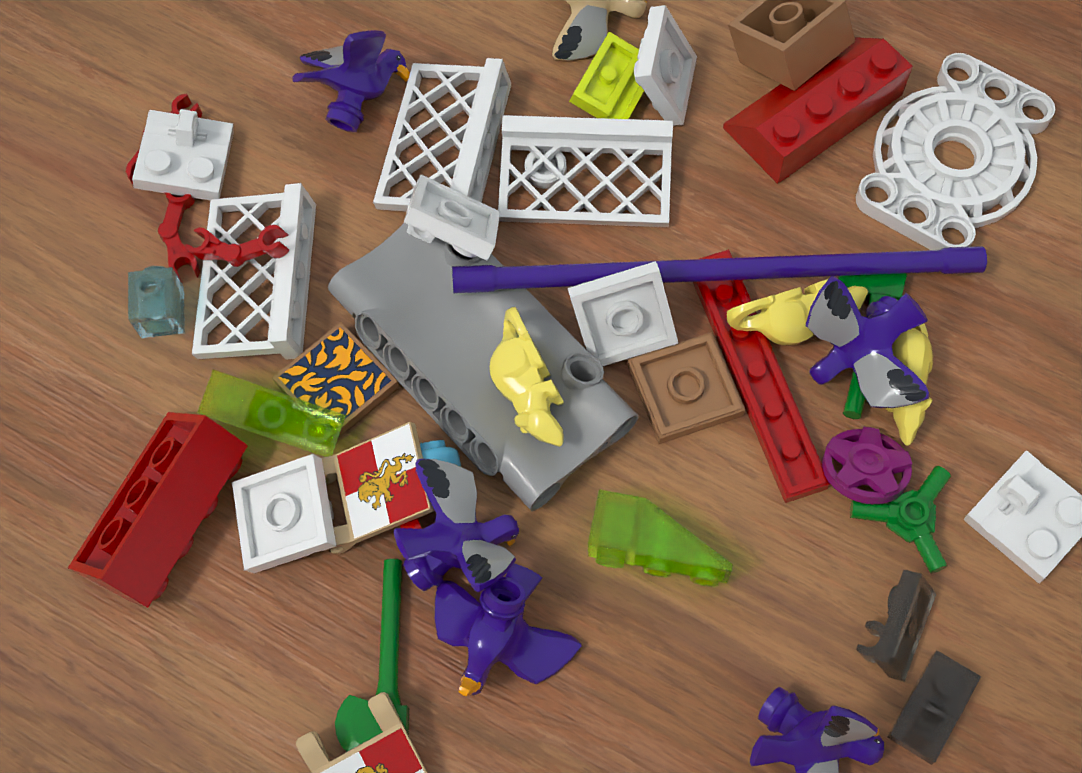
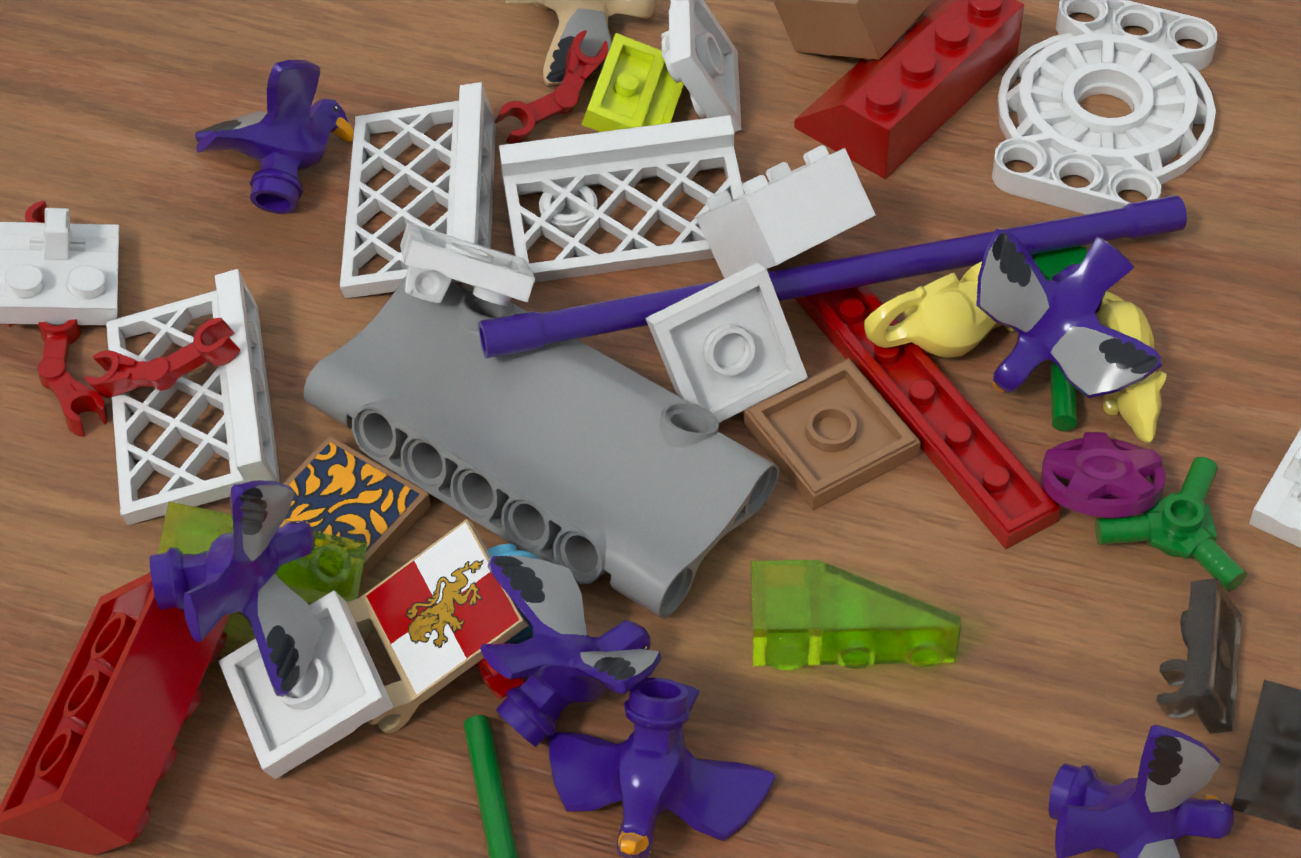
camera: 15 degrees left, 15 degrees down
(156, 302) = (56, 457): clear light blue brick -> none
(247, 444) = (242, 578): none -> dark purple animal
(520, 377) = (608, 441): light yellow animal -> none
(563, 74) = (563, 99): none -> red piece
(690, 215) = (786, 213): none -> white container

